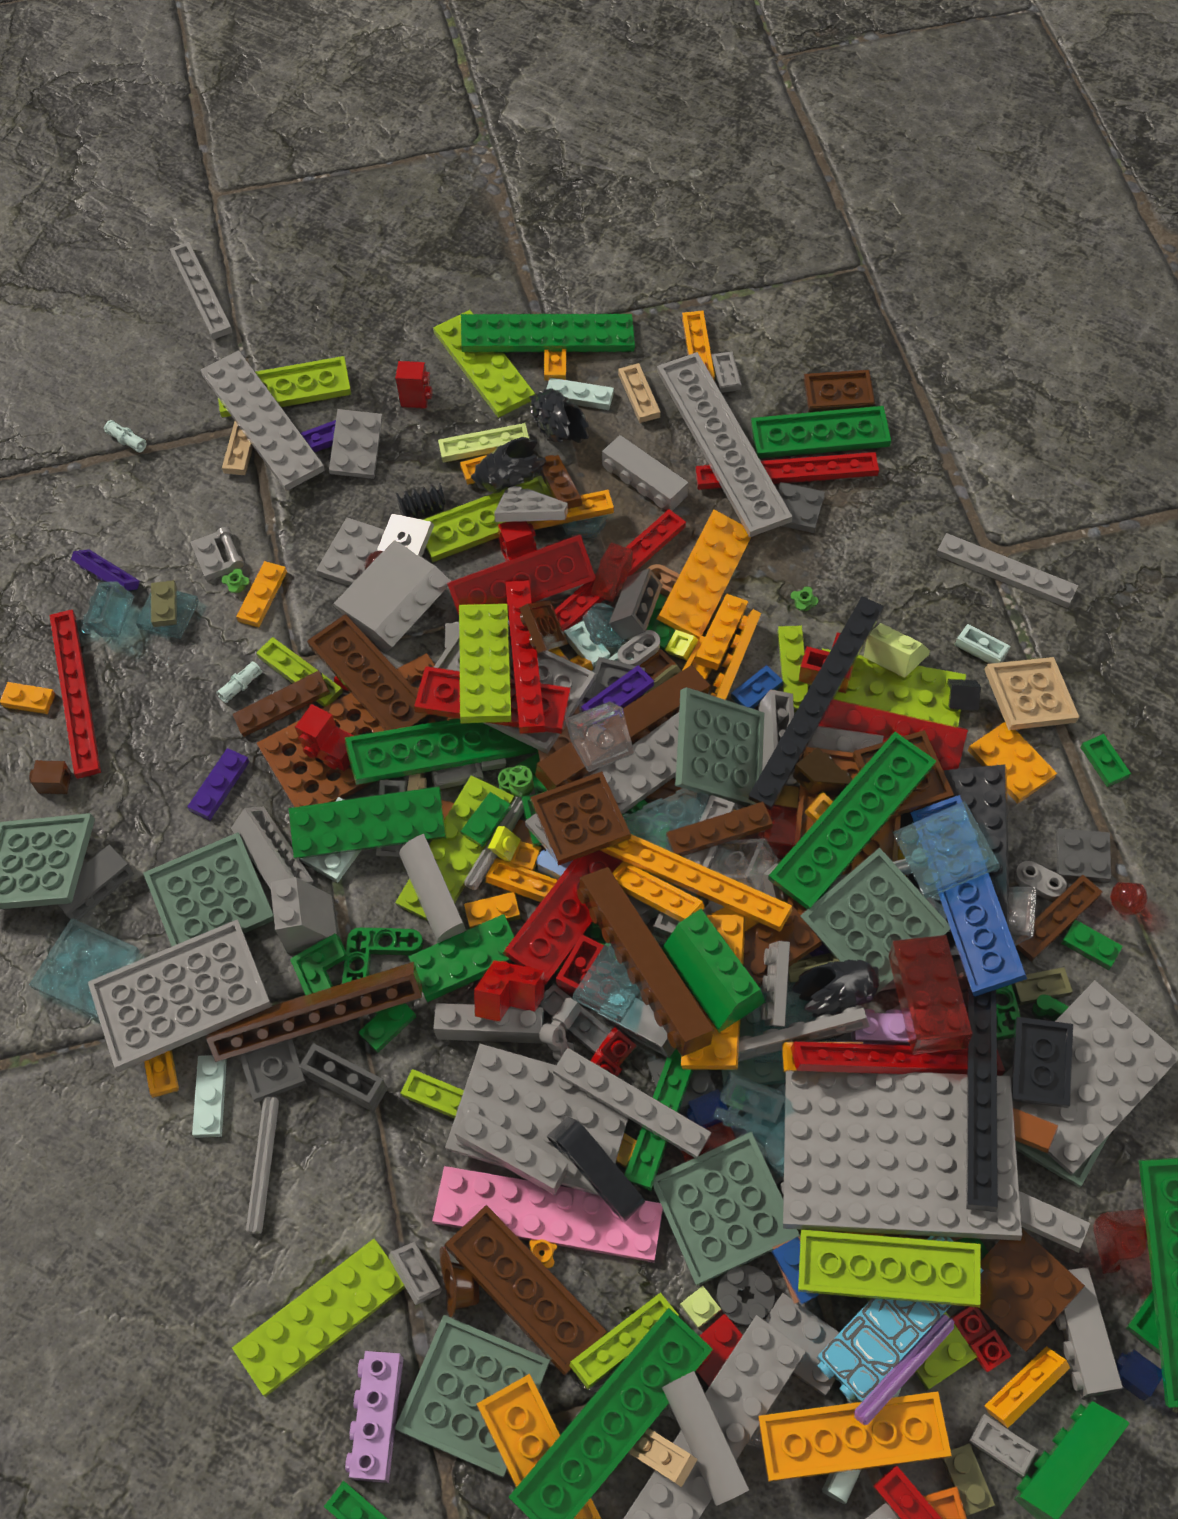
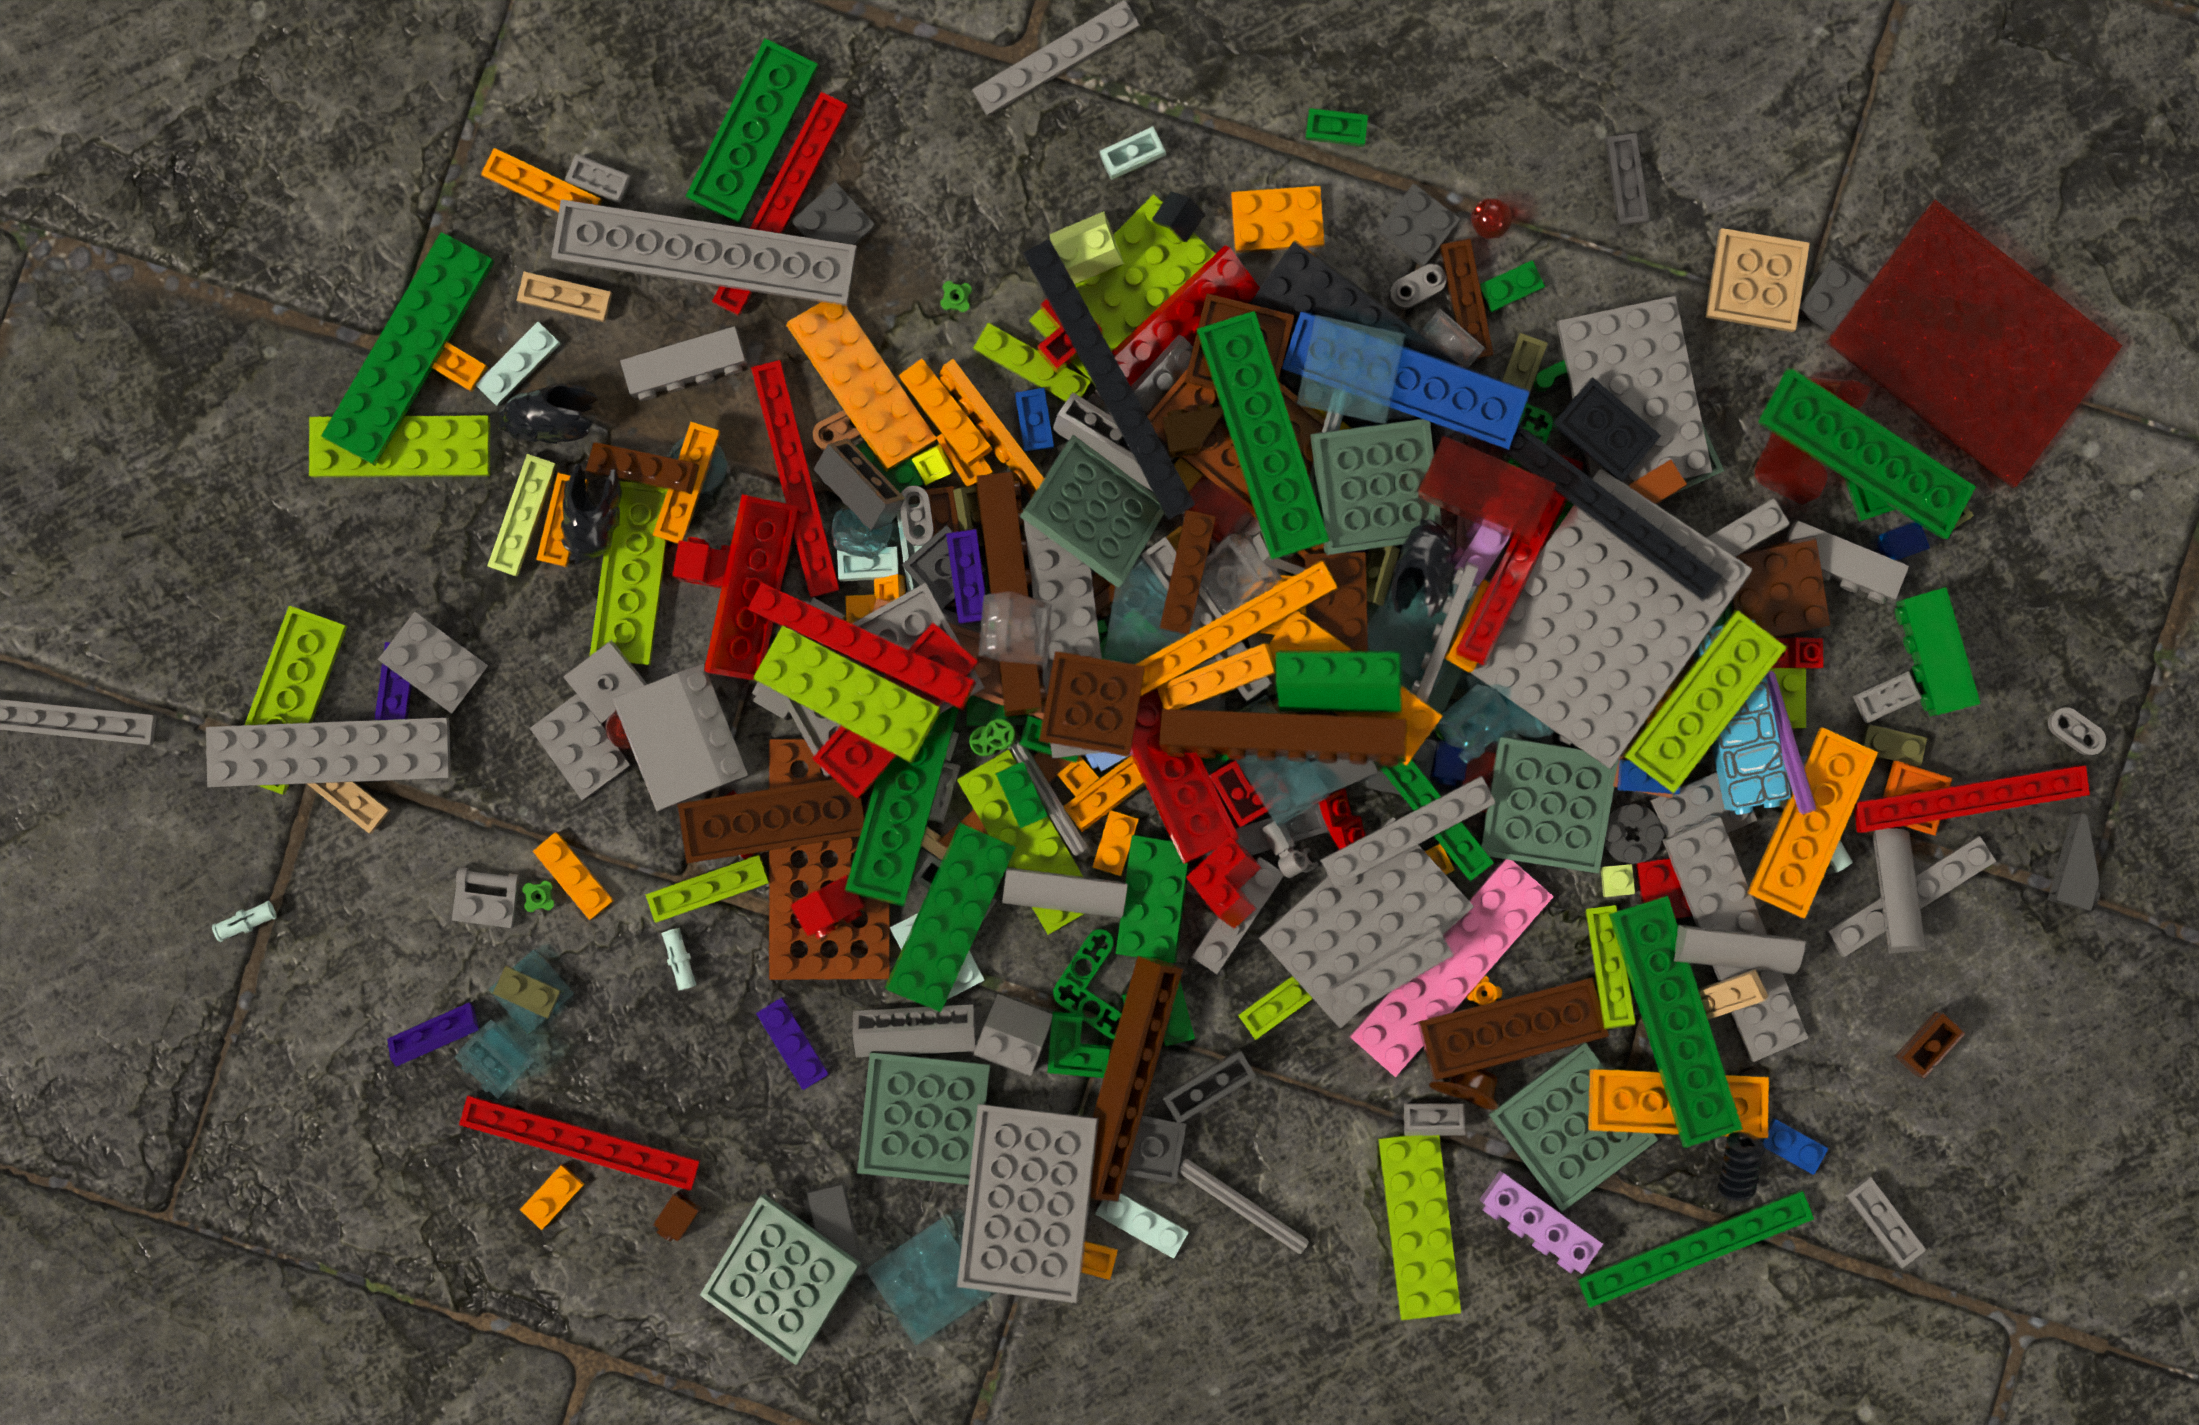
camera: 60 degrees left, 25 degrees up
(281, 703) = (738, 928): reddish brown plate -> none
(413, 384) = (393, 550): red piece -> none
(421, 501) = (565, 634): black piece -> none
(504, 843) = (1058, 791): neon yellow plate -> none
(528, 505) = (668, 526): light grey plate -> none
(543, 626) = (839, 605): reddish brown plate -> none
(597, 1167) = (1448, 903): black beam -> none
(612, 571) = (803, 484): clear red slope -> none
(775, 984) = (1389, 627): light grey plate -> none
(818, 807) = (1225, 457): light orange plate -> none
(838, 390) = (705, 69): reddish brown tile -> none
(1027, 1387) = (1855, 643): light orange plate -> none
(1031, 693) = (1220, 146): tan plate -> none

